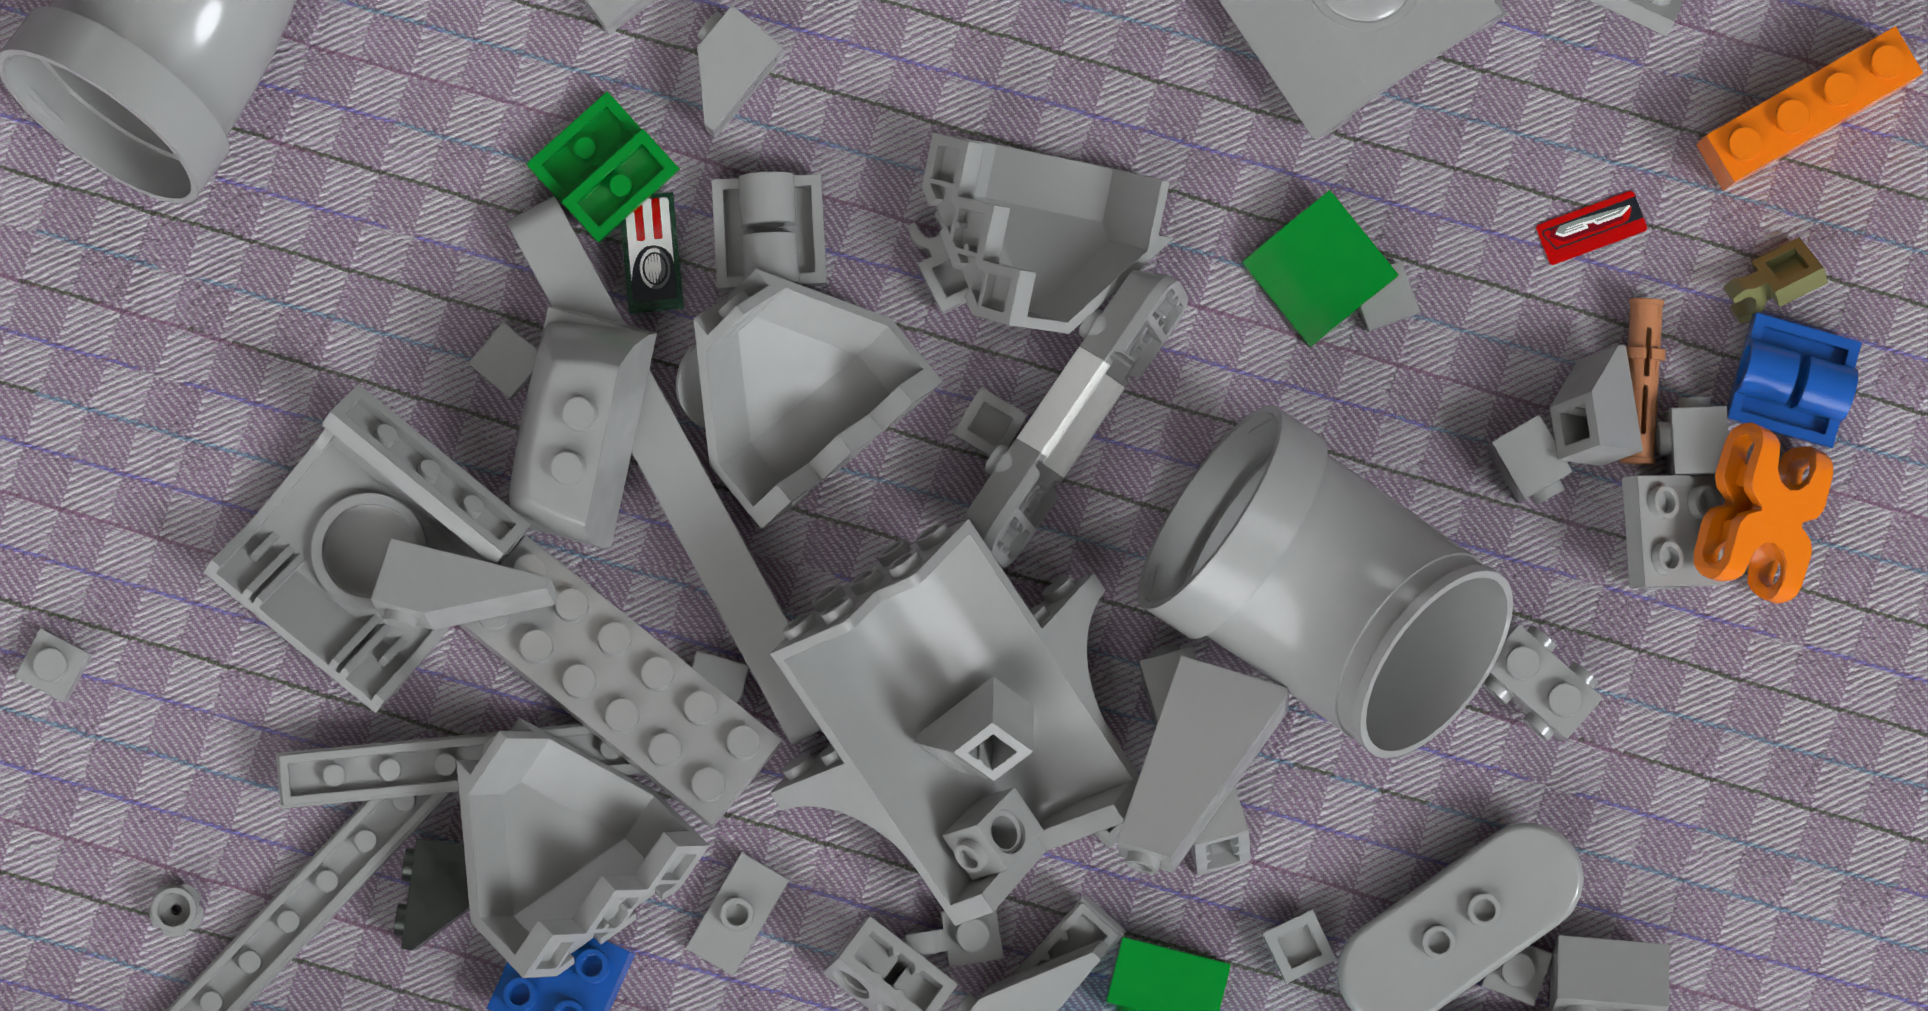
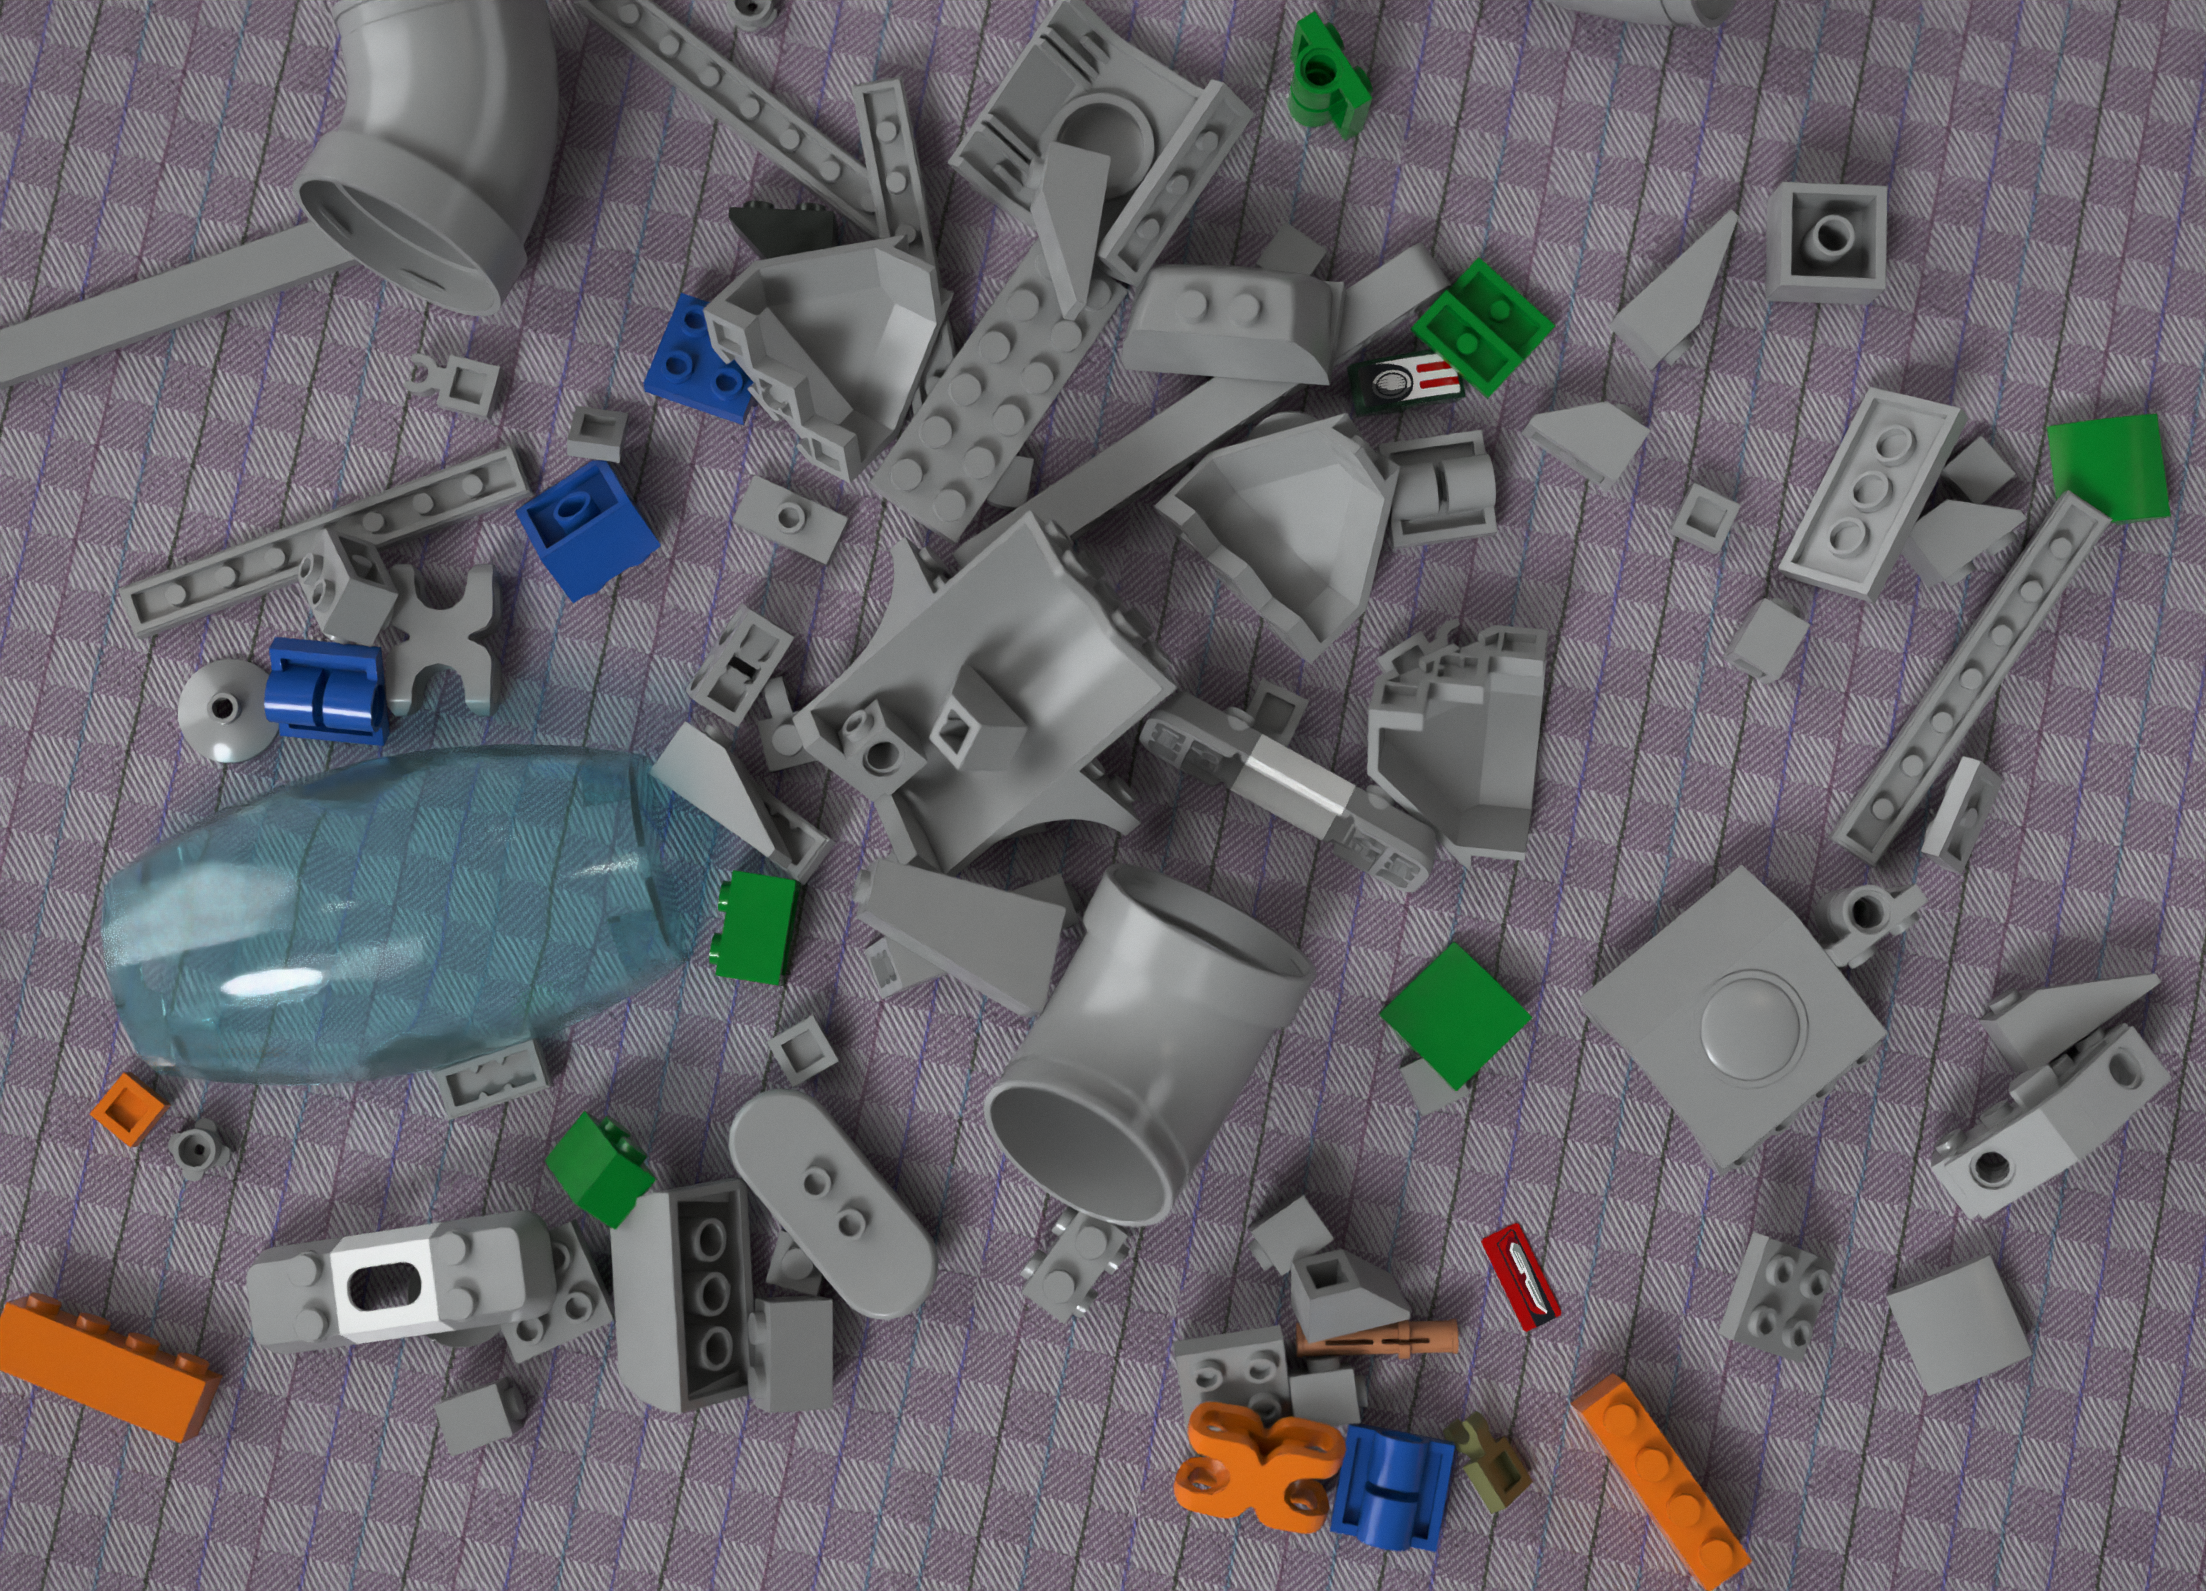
camera: 85 degrees right, 0 degrees up
(301, 308) = (1324, 82): none -> green plate

